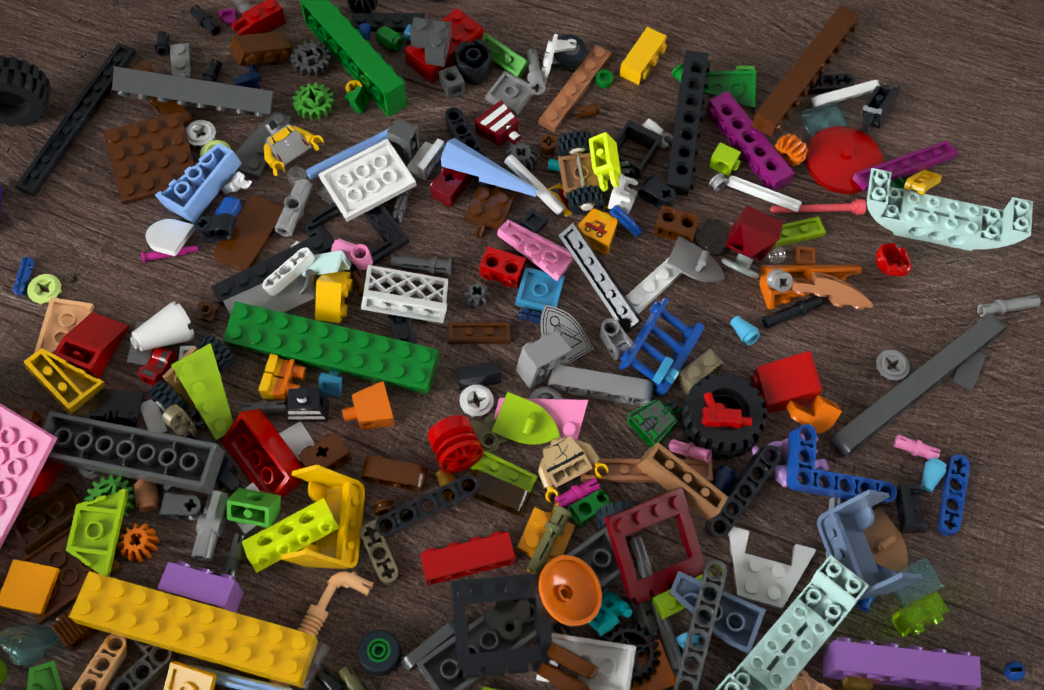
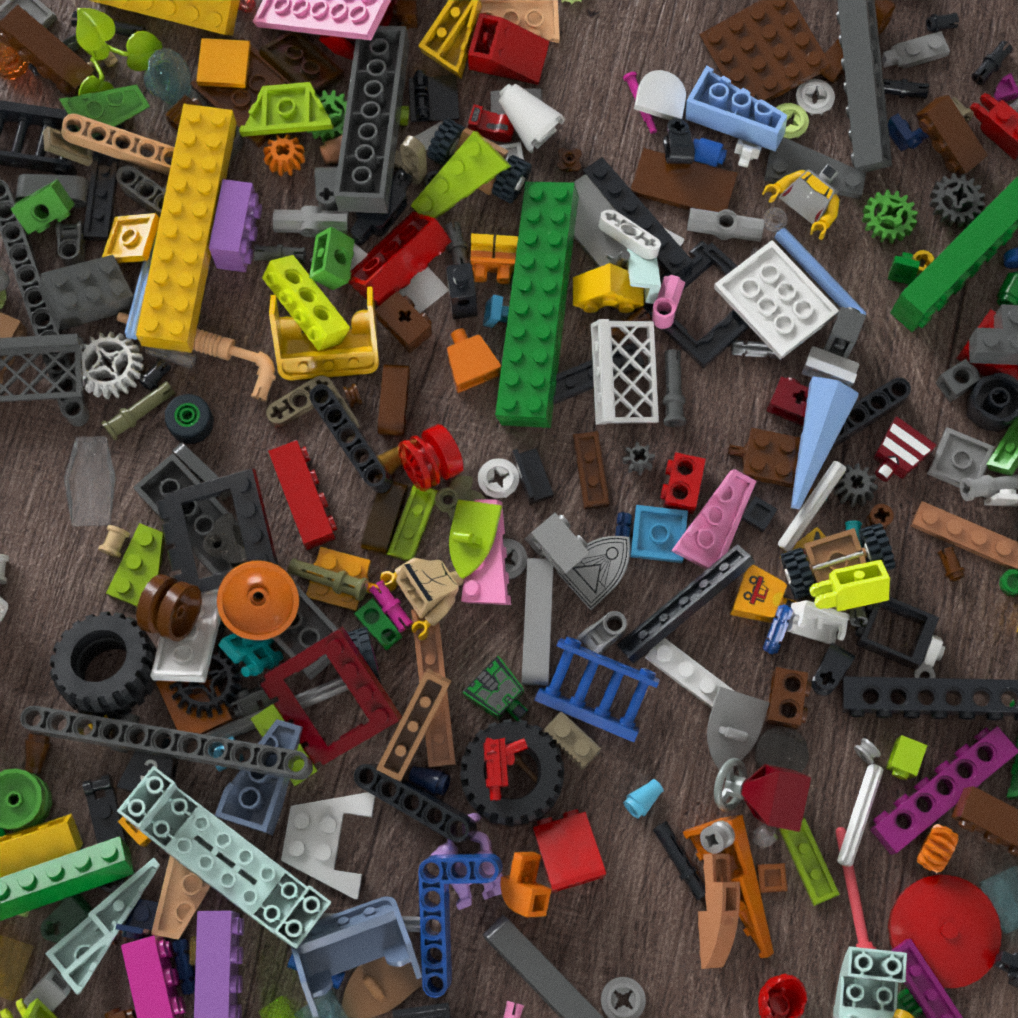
camera: 85 degrees right, 10 degrees up
(665, 372) = (556, 692): dark azure tile -> none
(690, 451) = (462, 736): bright pink axle -> none

